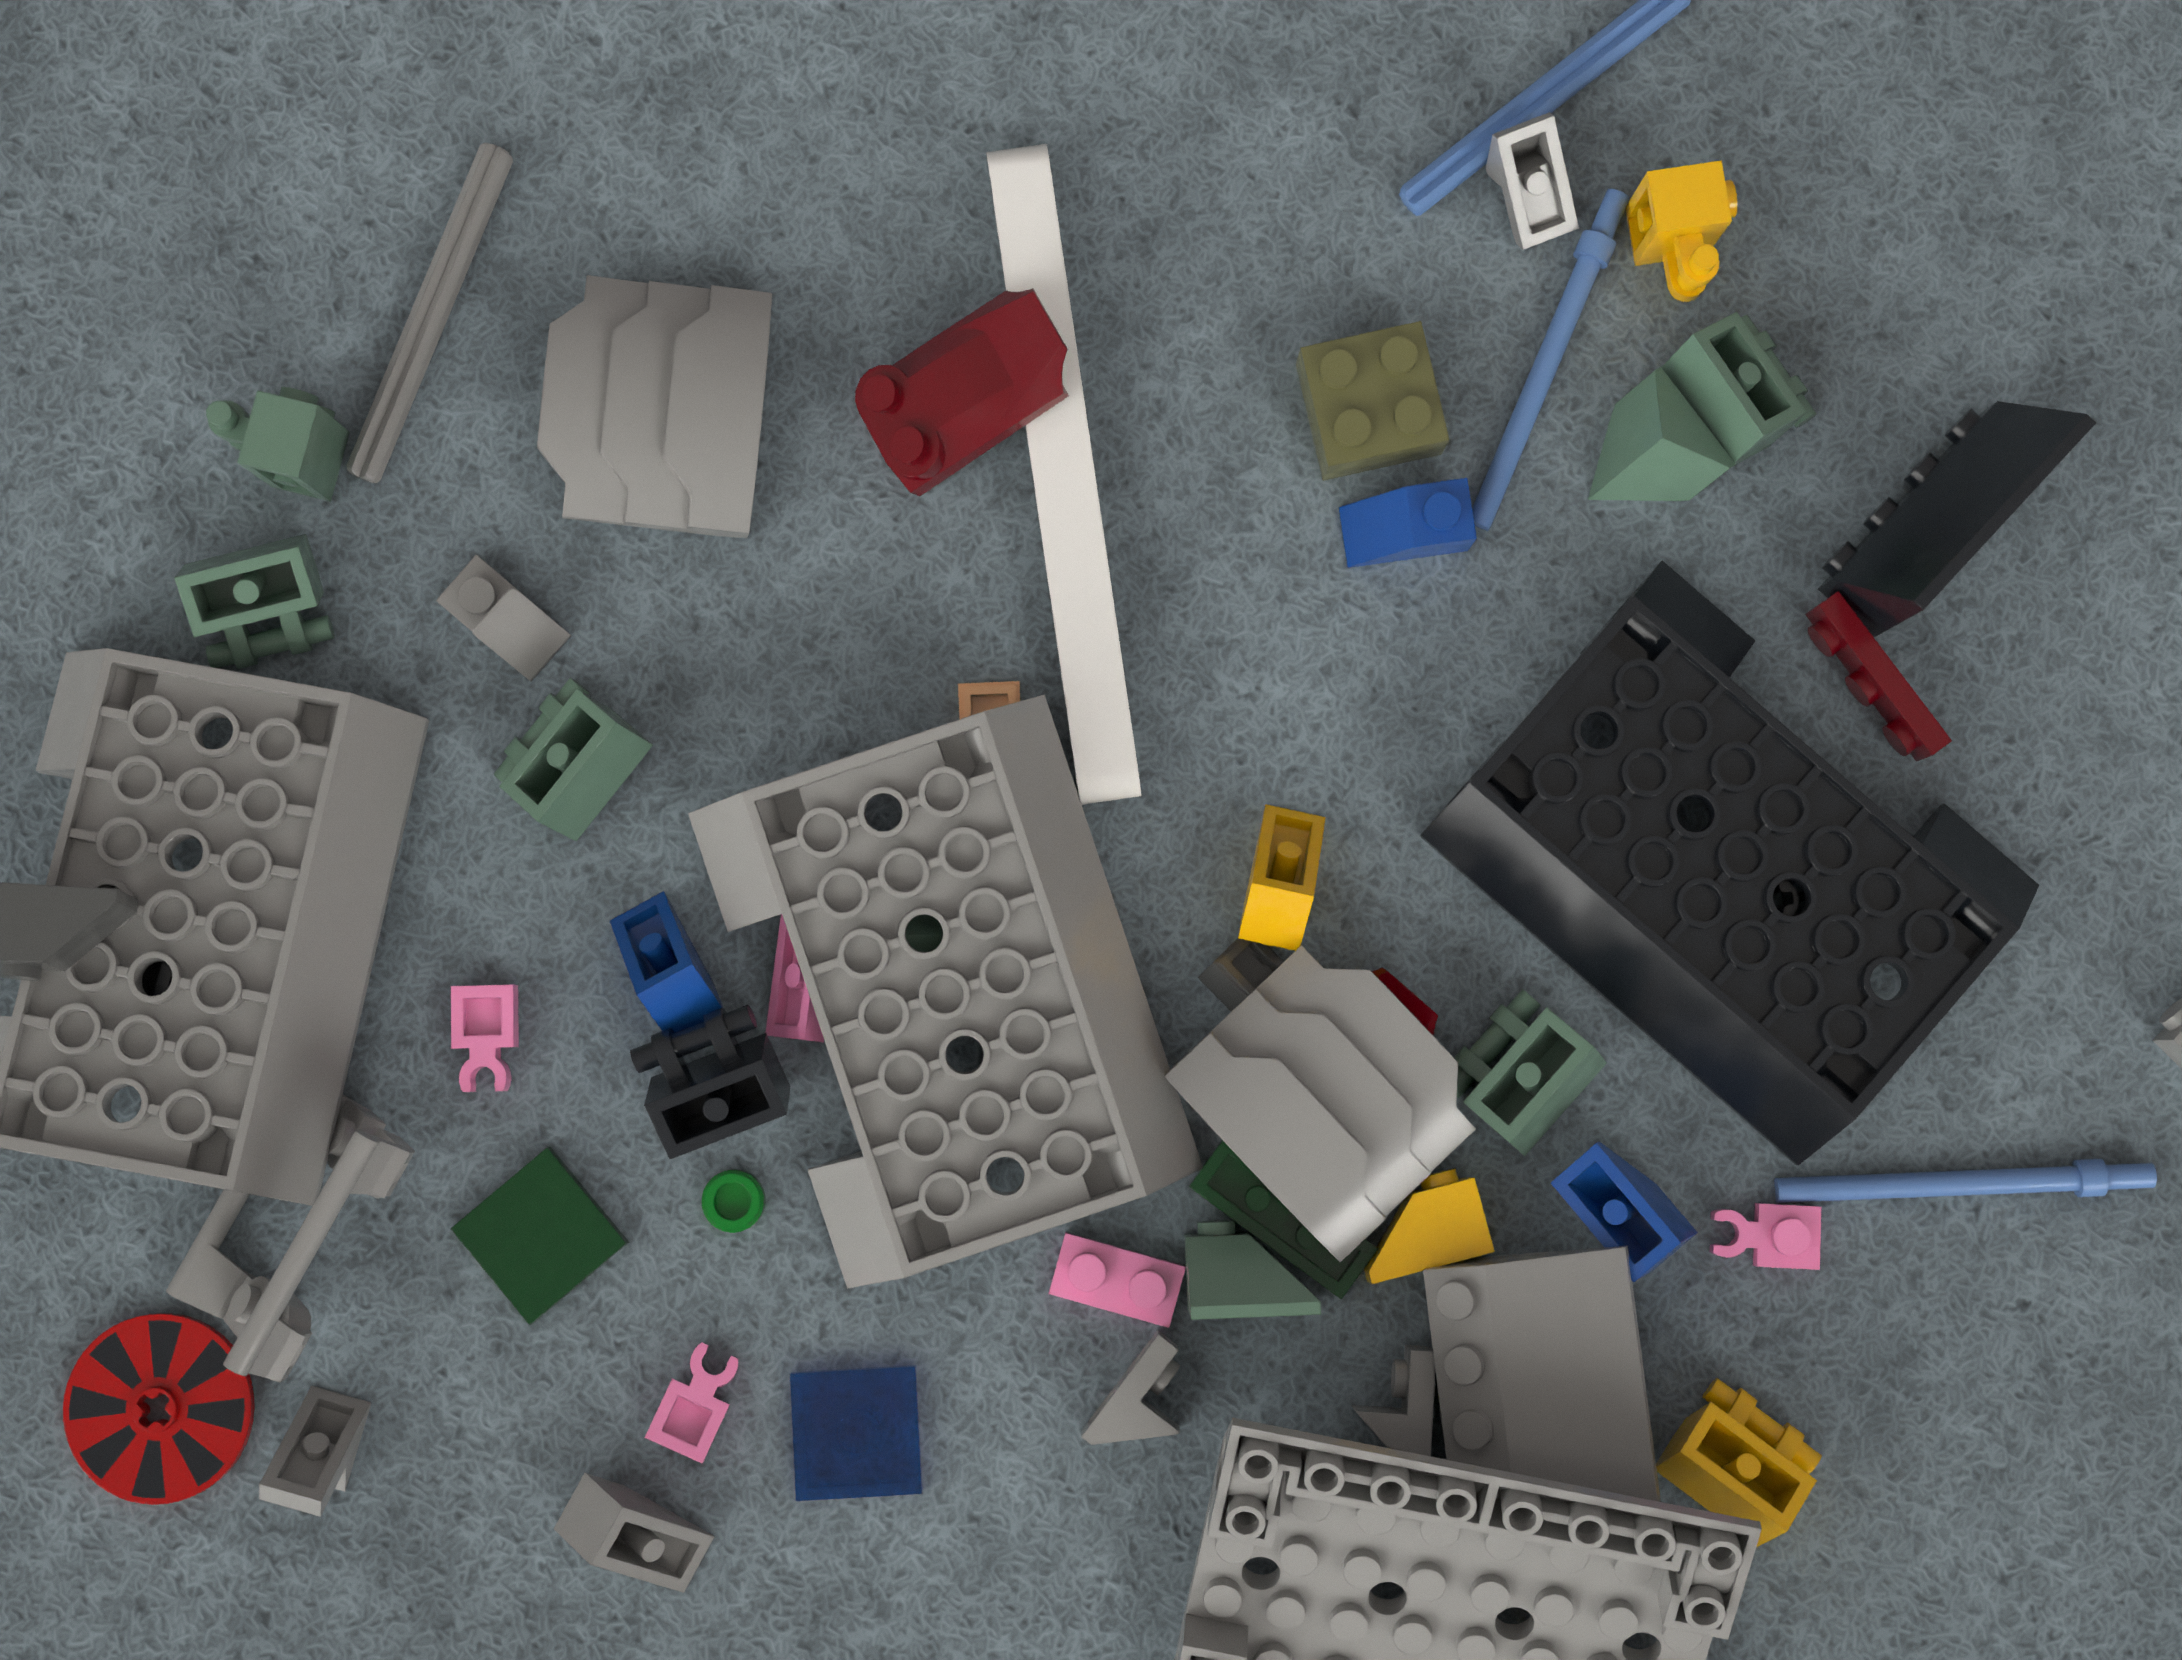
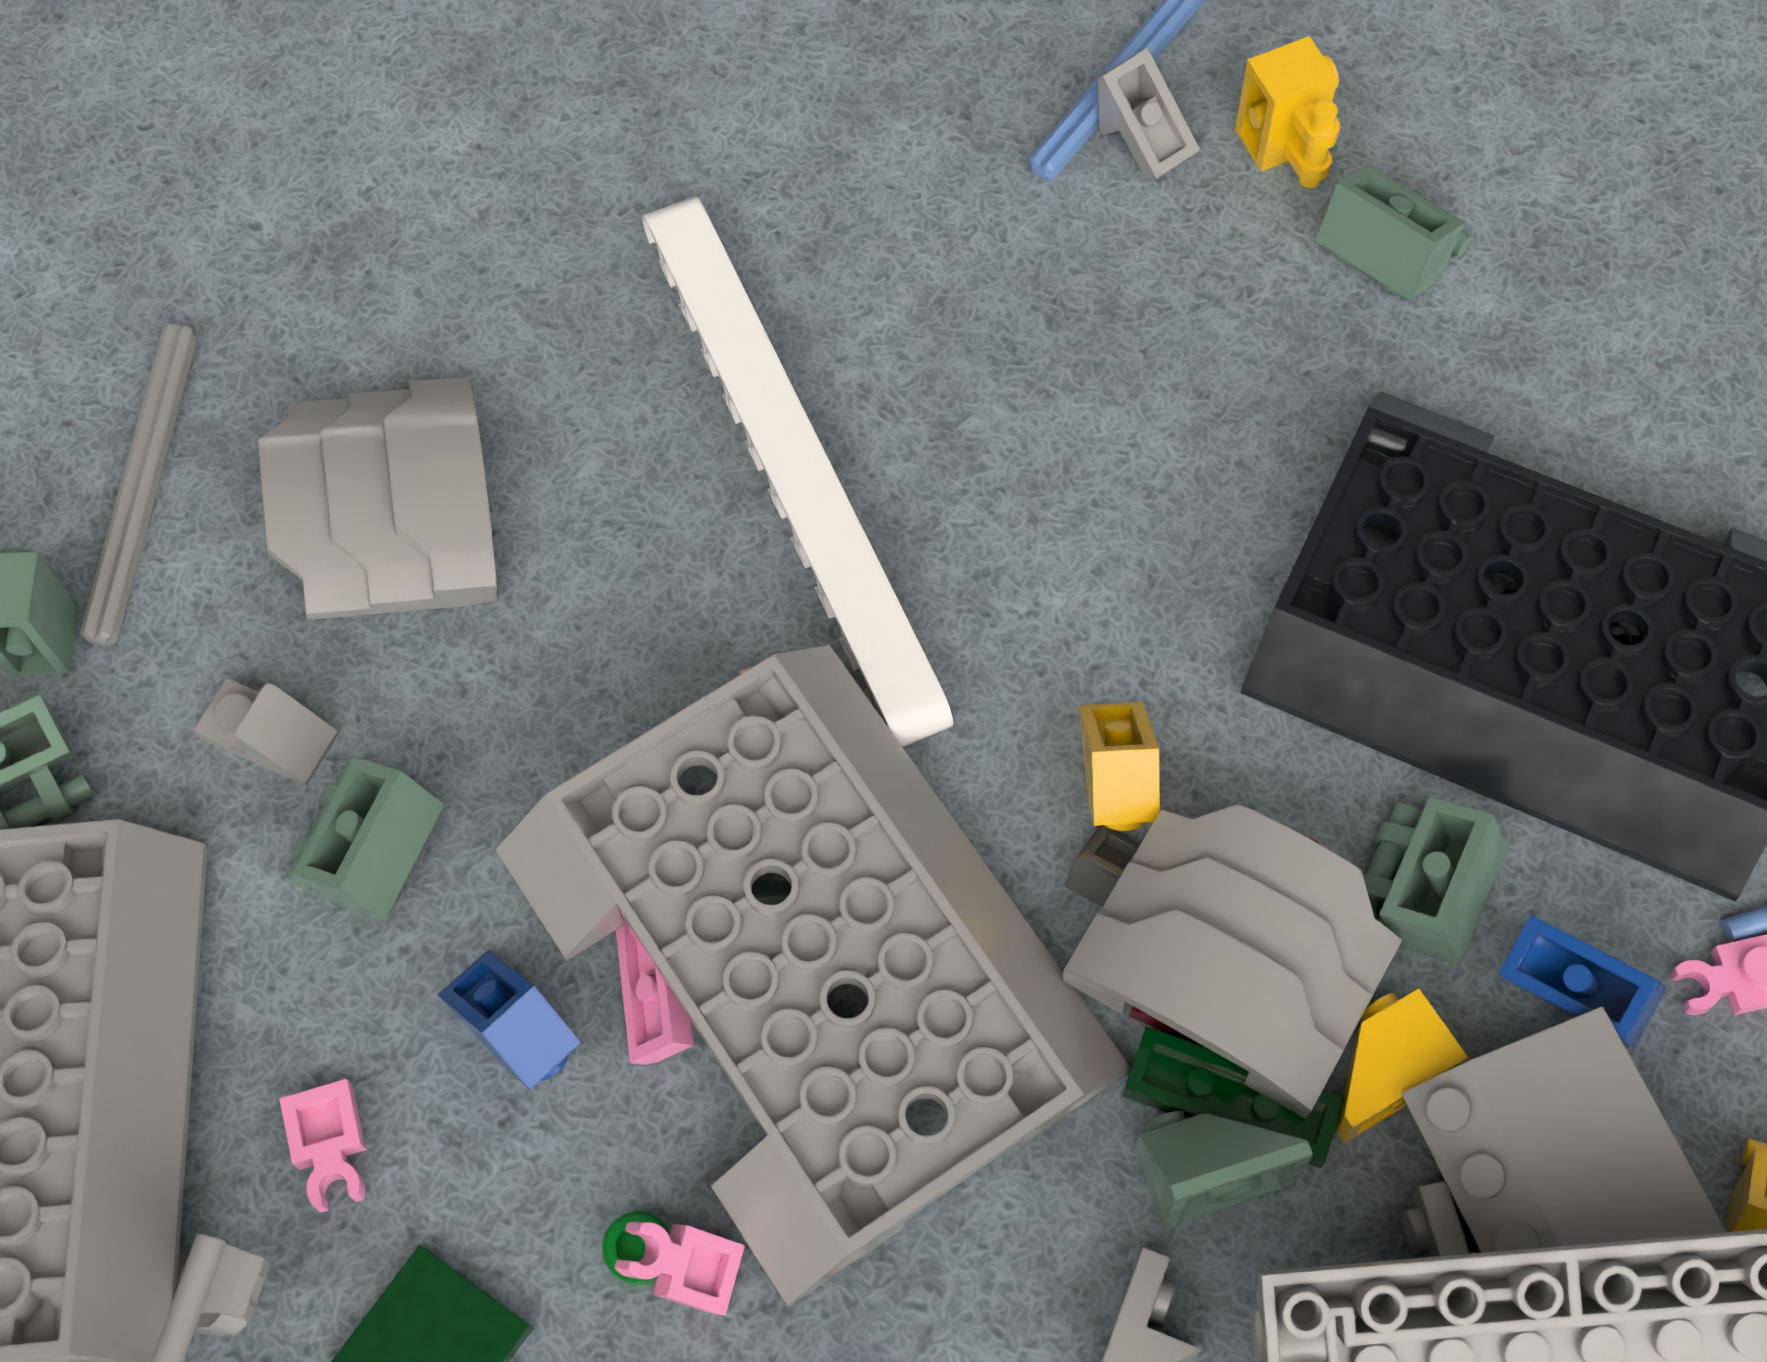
camera: 15 degrees left, 20 degrees down
(716, 1093) = (594, 1126): black brick -> none
(769, 1237) = (689, 1264): none -> bright pink plate
(964, 389) = (677, 403): dark red slope -> none
(1117, 1280) = (1078, 1215): bright pink plate -> none
(1372, 400) = (1062, 324): olive brick -> none
(1409, 523) = (1135, 416): blue slope -> none
(1592, 254) = (1220, 169): medium blue bar -> none
(1657, 447) = (1340, 301): sand green slope -> none
(1875, 679) = (1621, 435): dark red plate -> none
(1950, 510) = (1624, 273): black slope -> none

